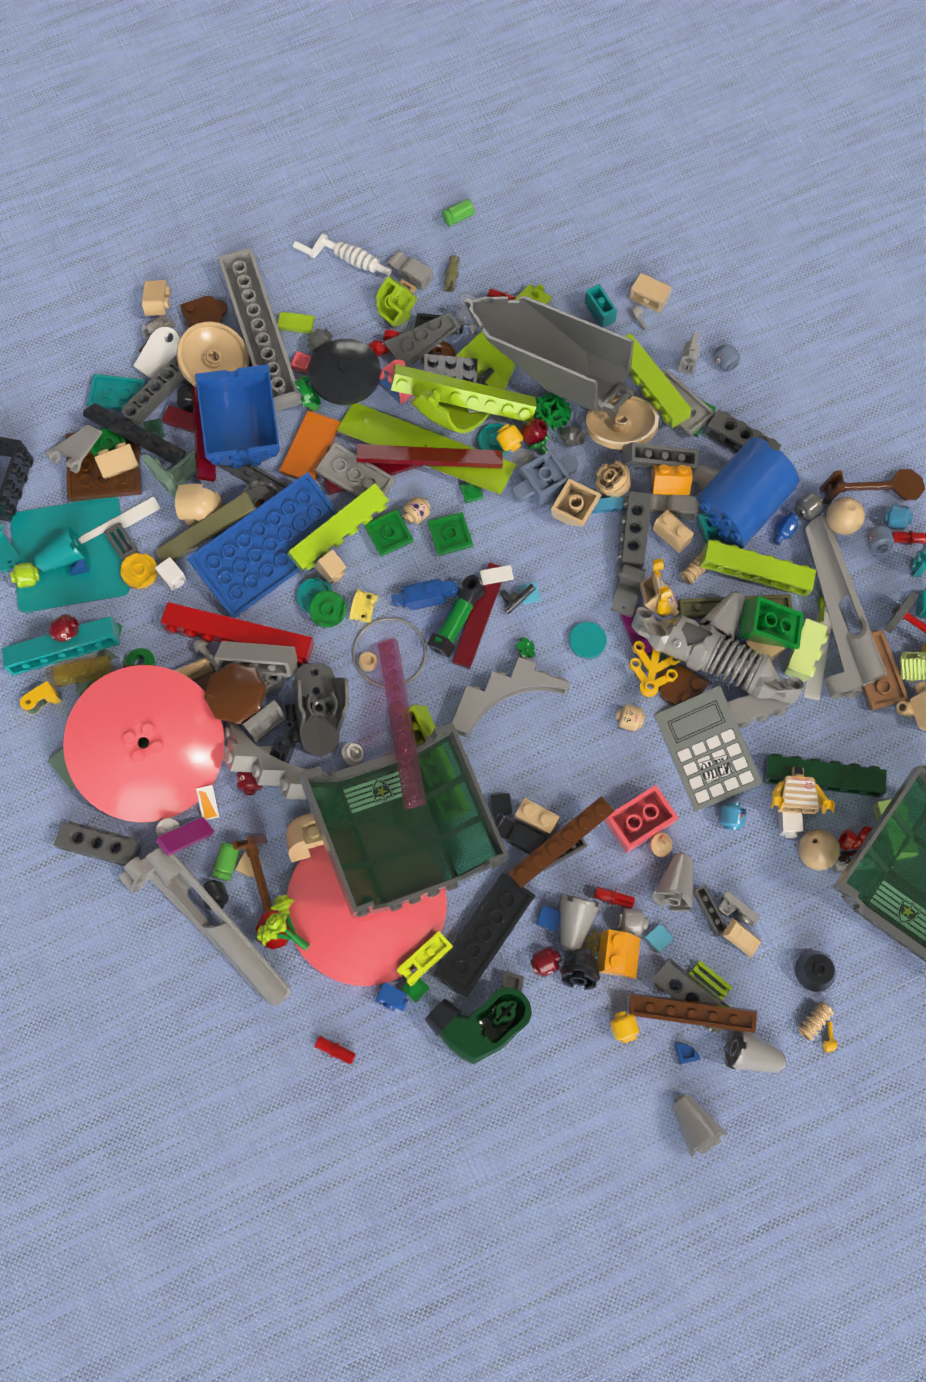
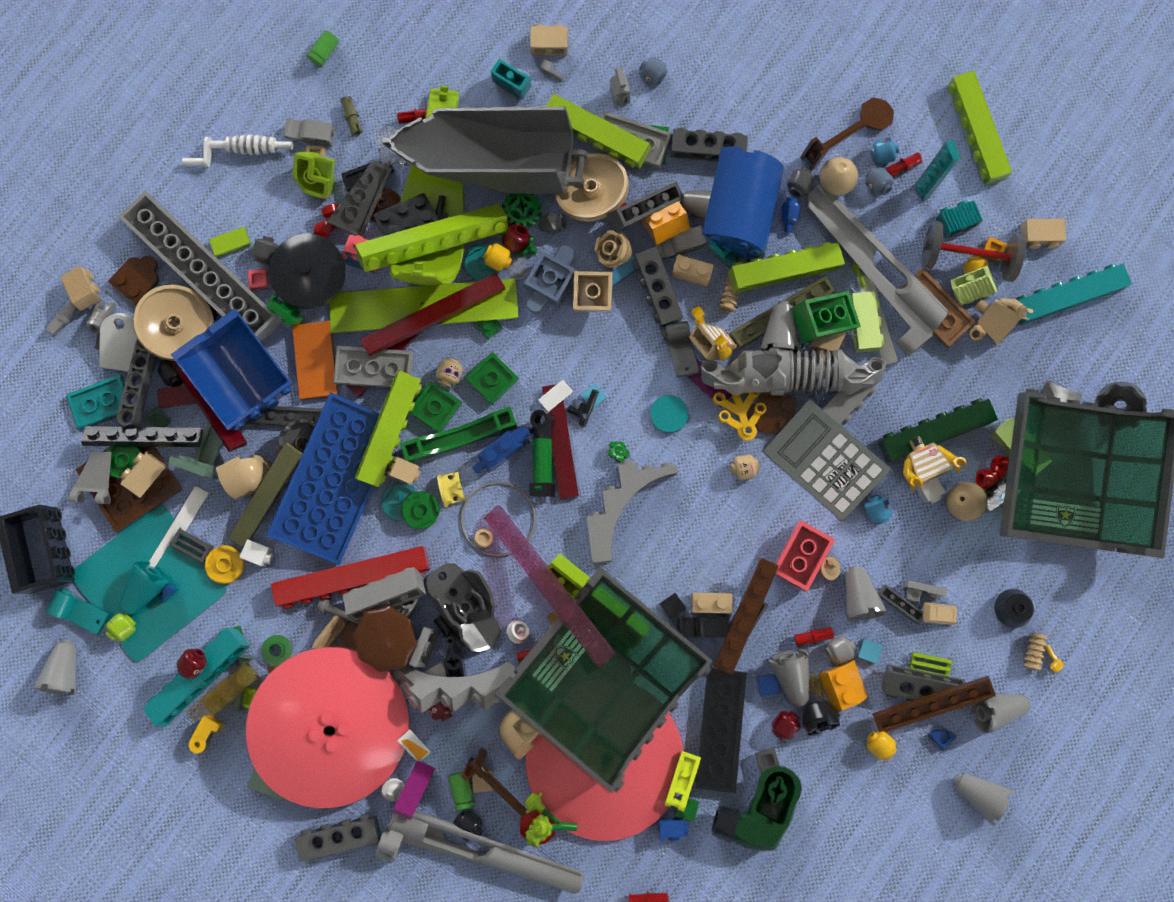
camera: 25 degrees left, 10 degrees up
(127, 314) = (61, 318): none -> light grey pin
(367, 561) = (438, 443): none -> green arch

